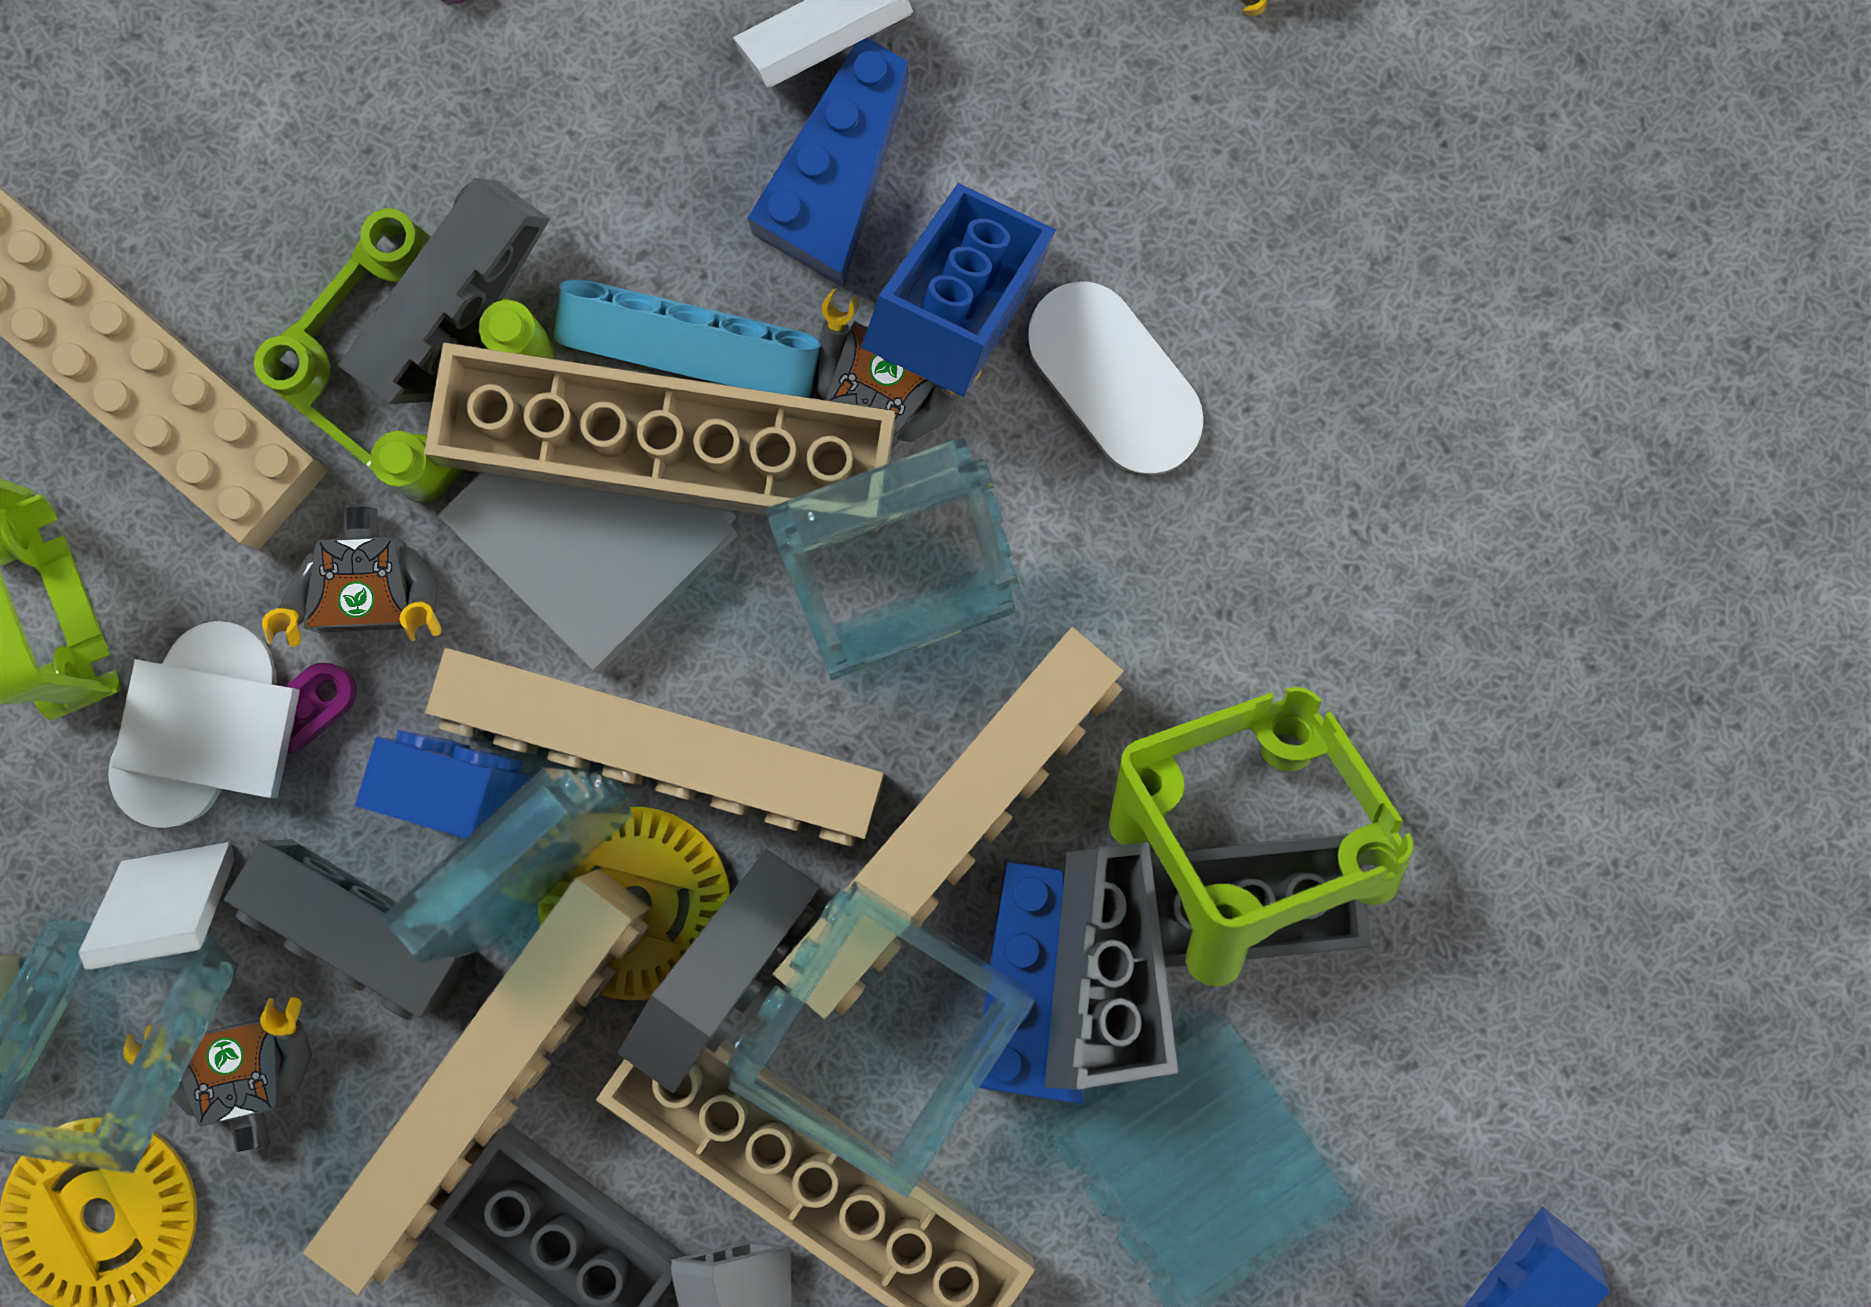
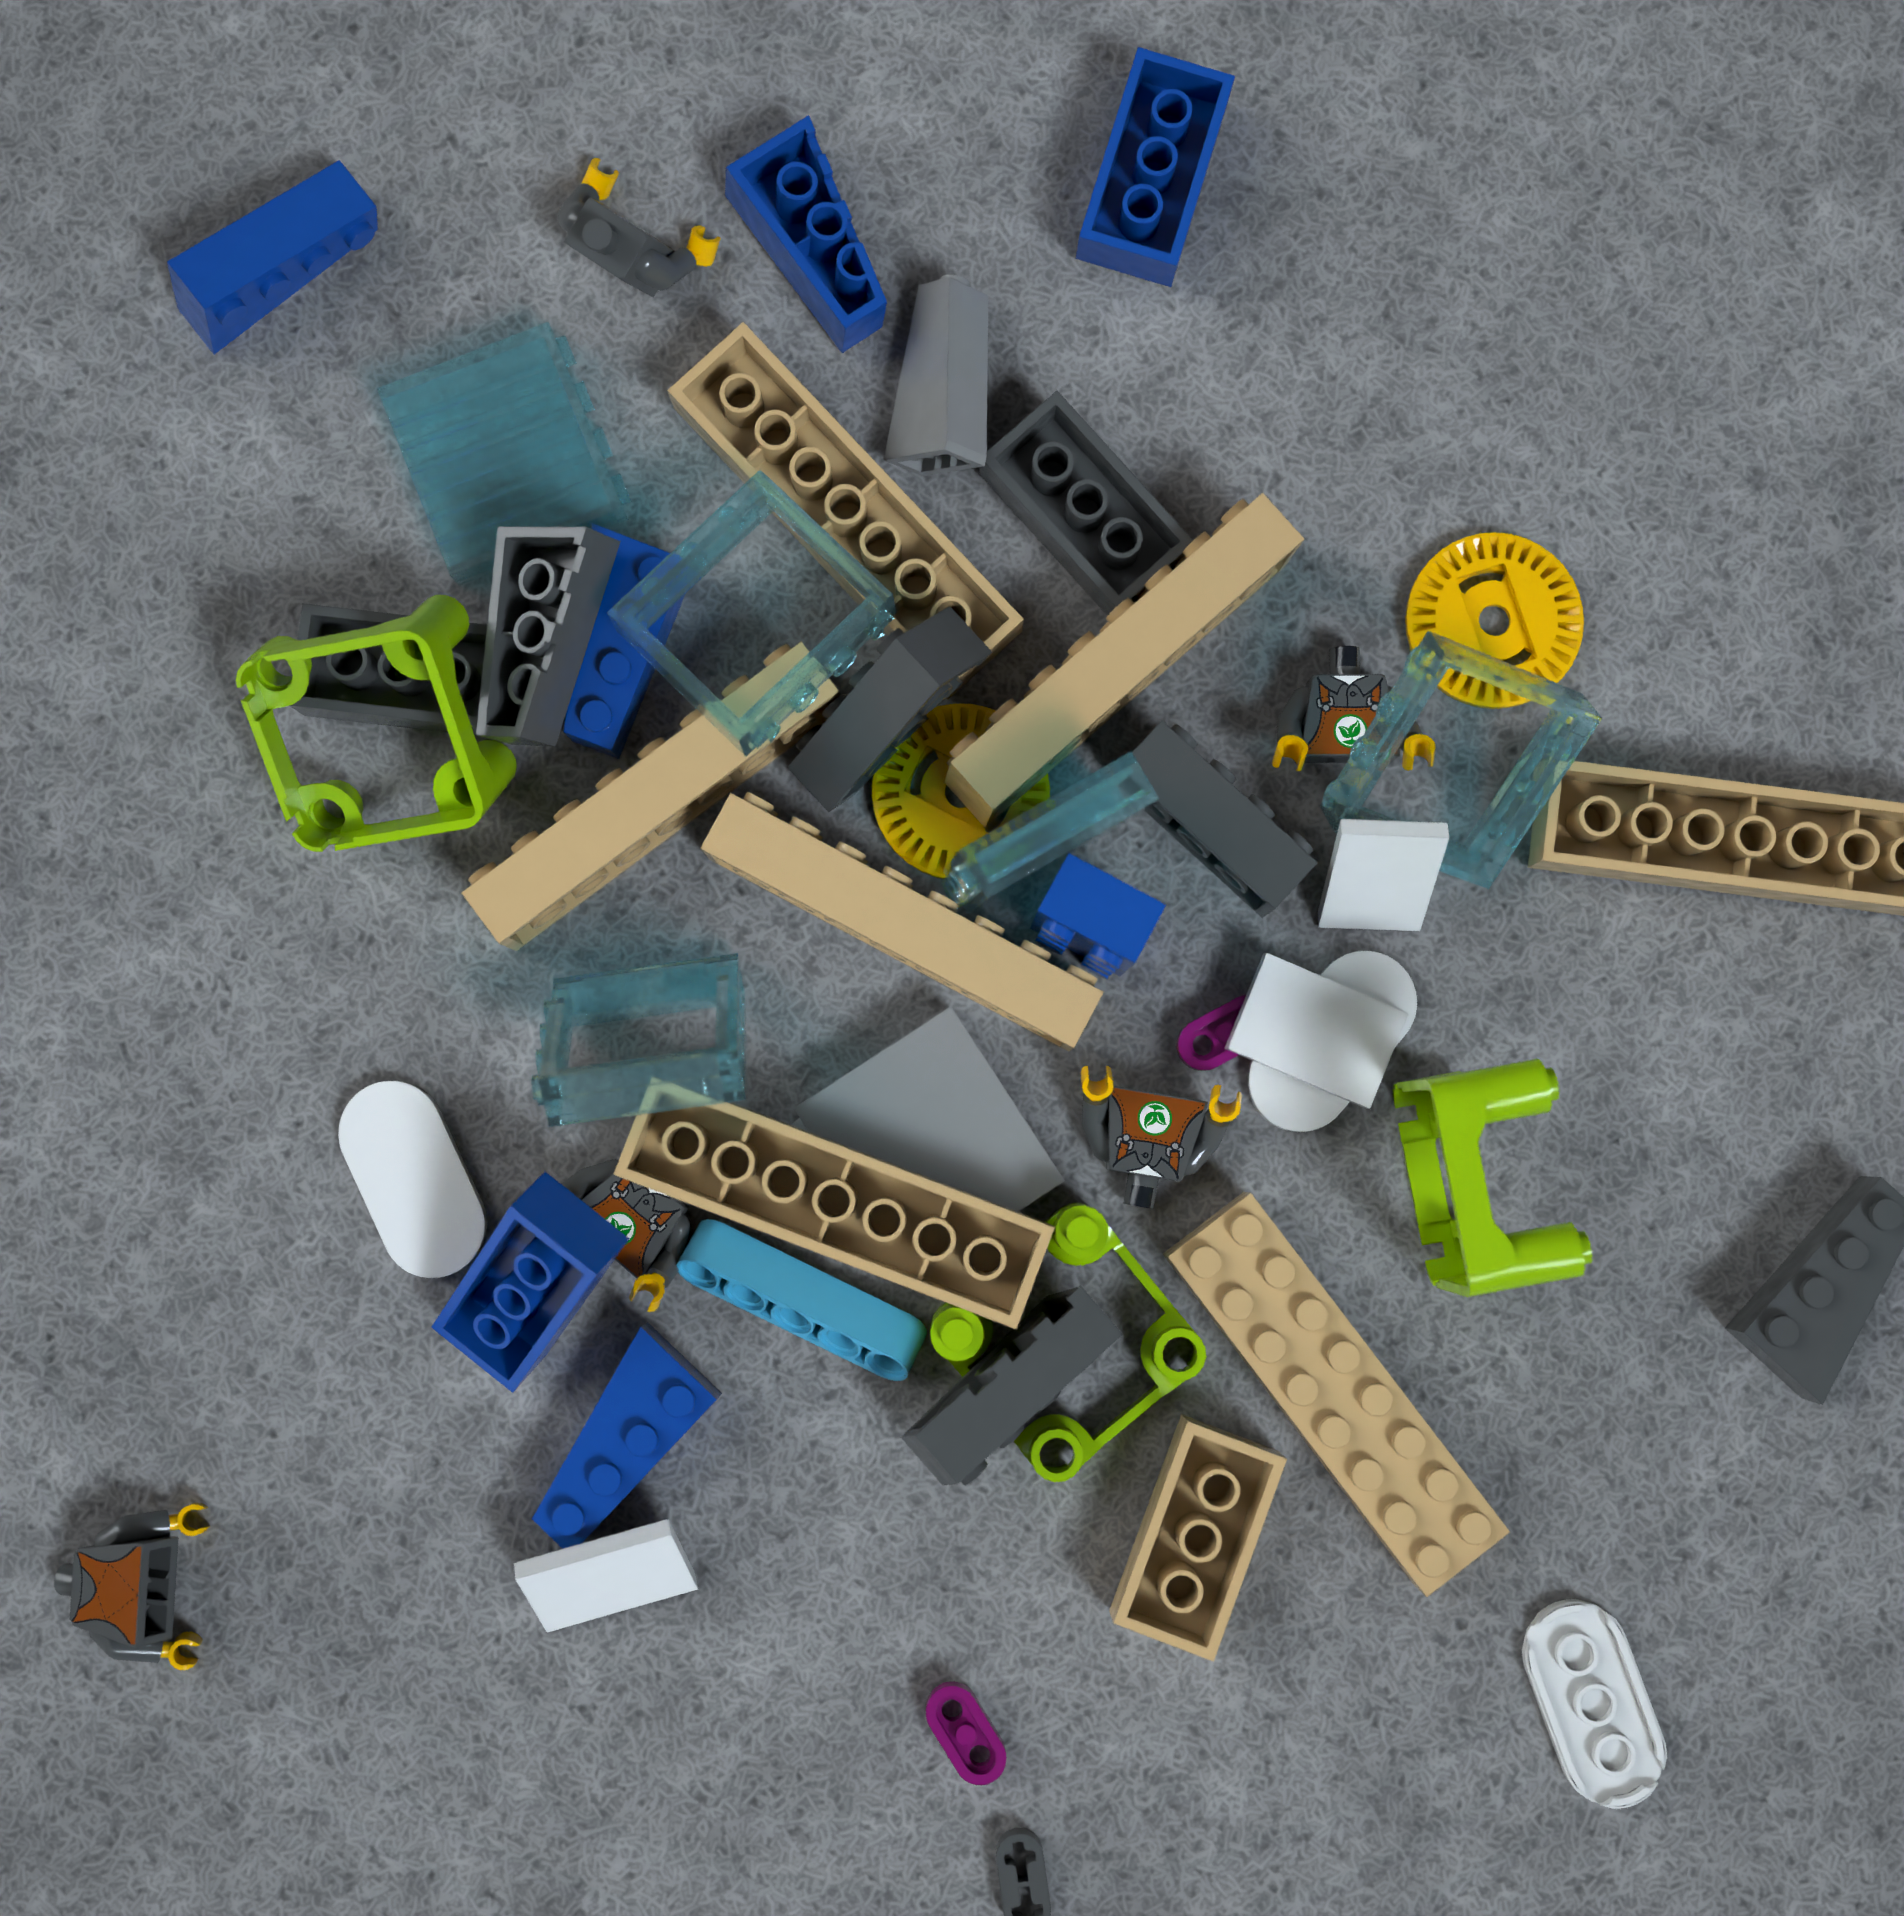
camera: 170 degrees left, 0 degrees up
(233, 189) = (1197, 1537): none -> tan brick

